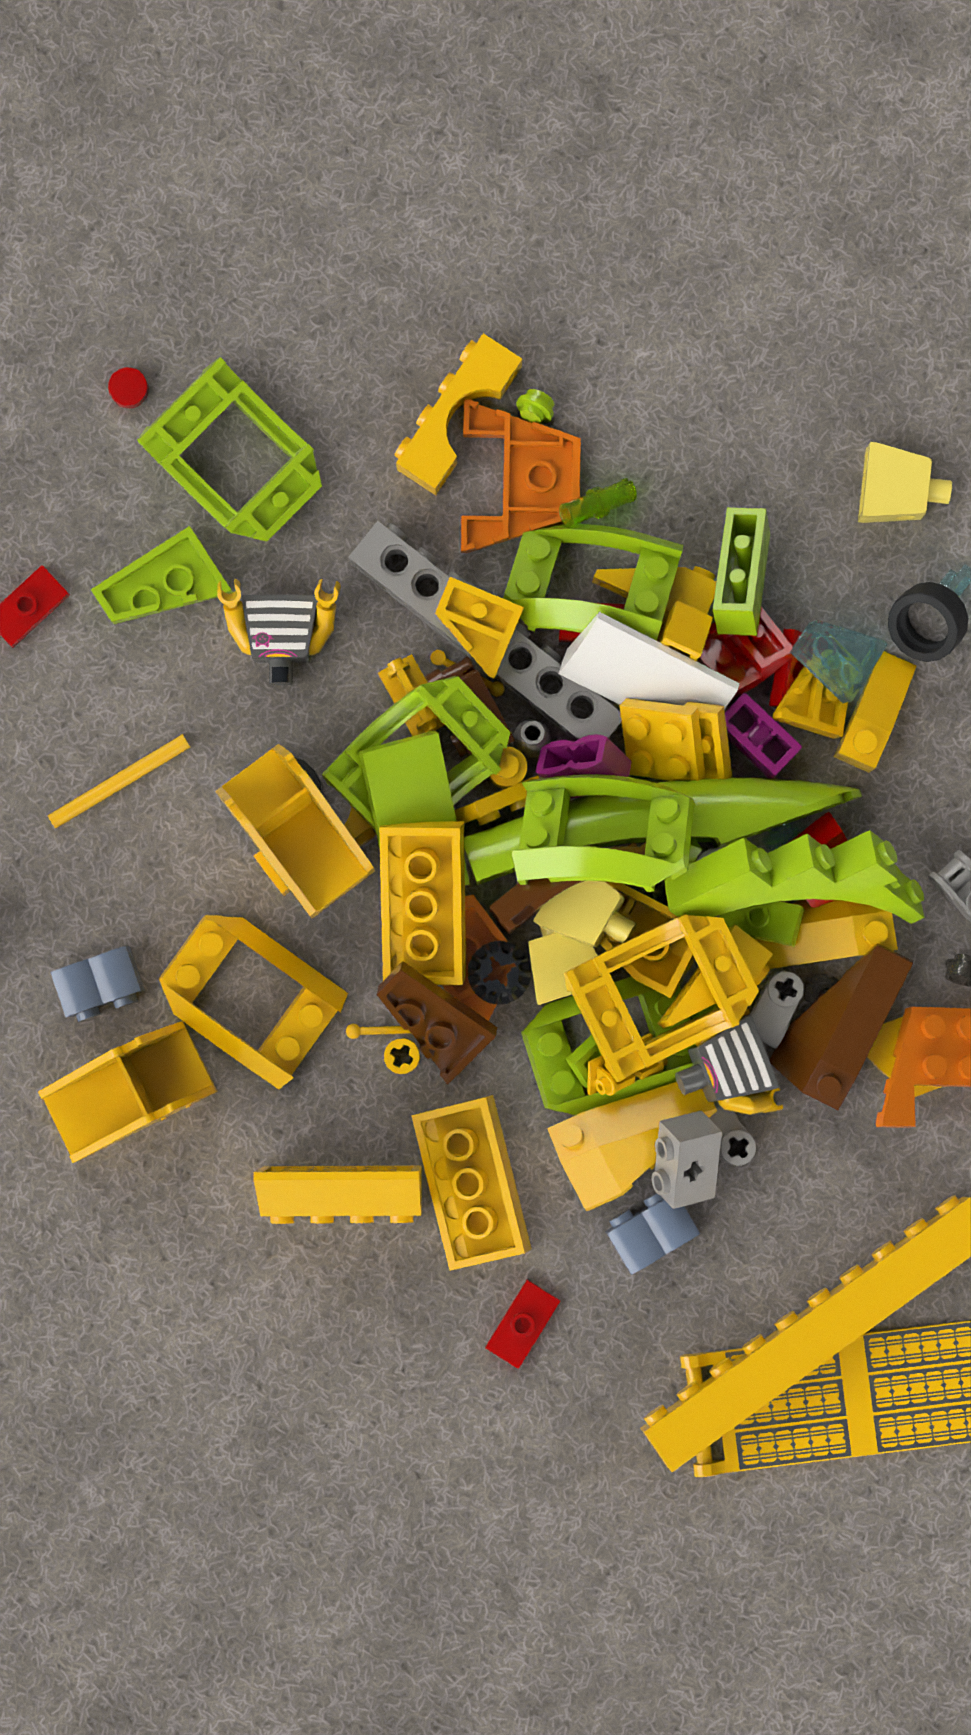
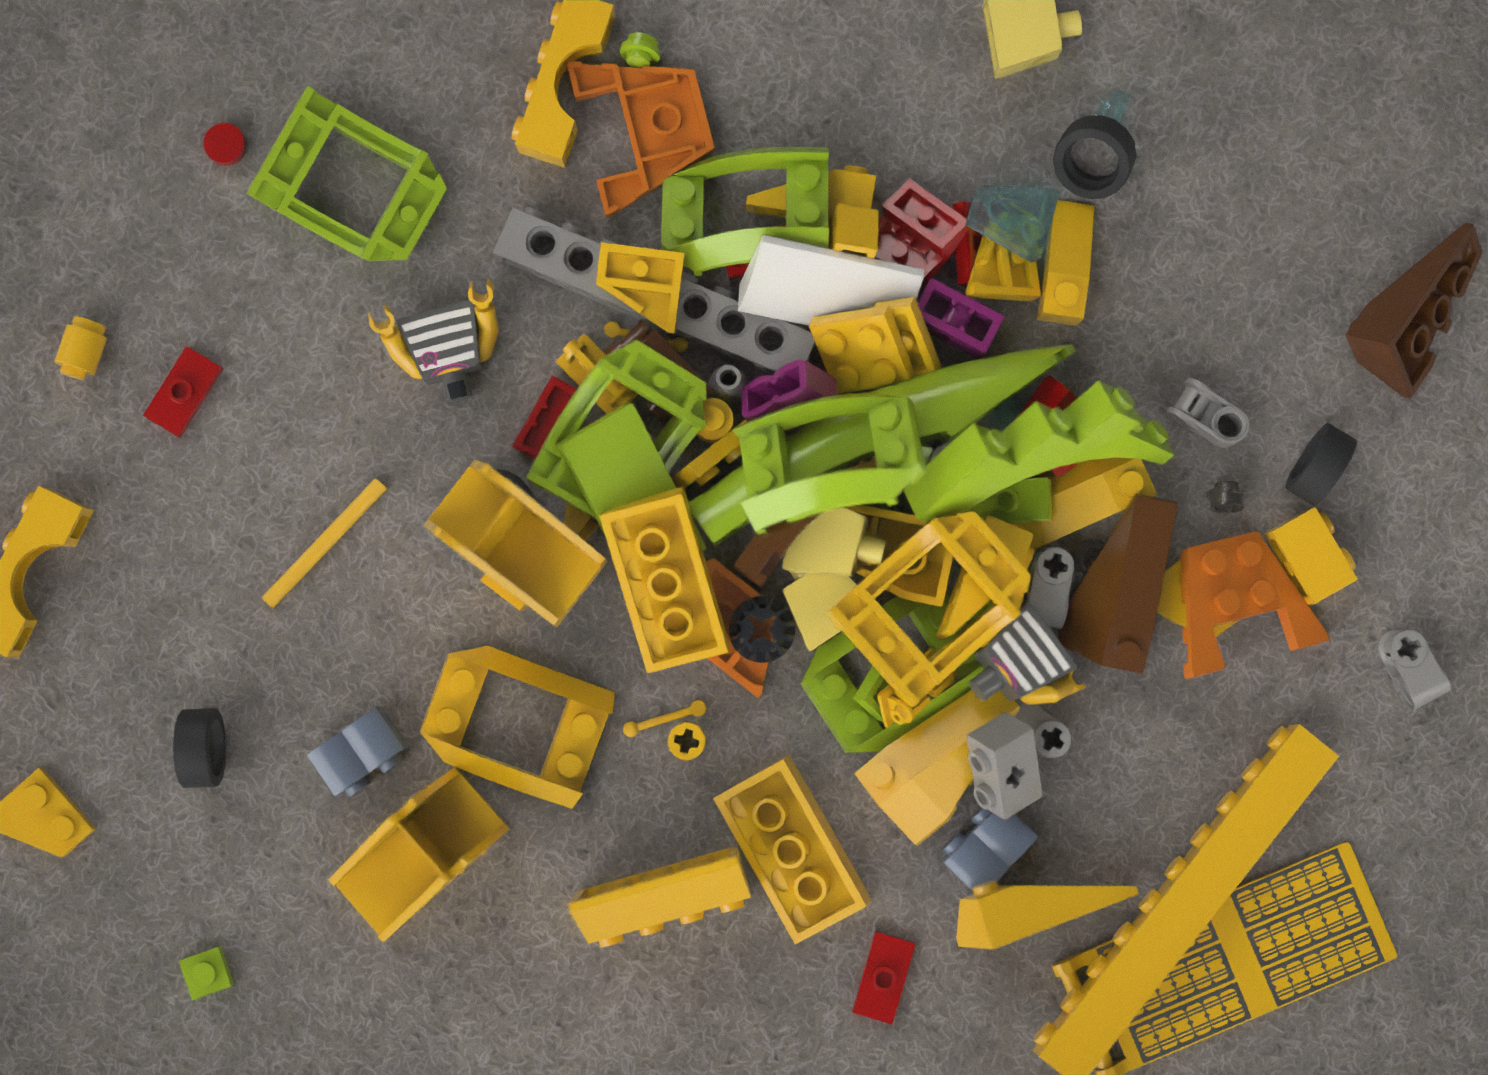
camera: 15 degrees left, 0 degrees up
(161, 580) = (311, 328): lime wing -> none
(353, 722) = (543, 417): none -> red plate
(438, 1021) = (715, 696): reddish brown wing -> none
(597, 502) = (729, 129): clear neon green pin -> none
(656, 1295) = (1009, 913): none -> yellow wedge
(741, 571) = (894, 157): lime brick -> none

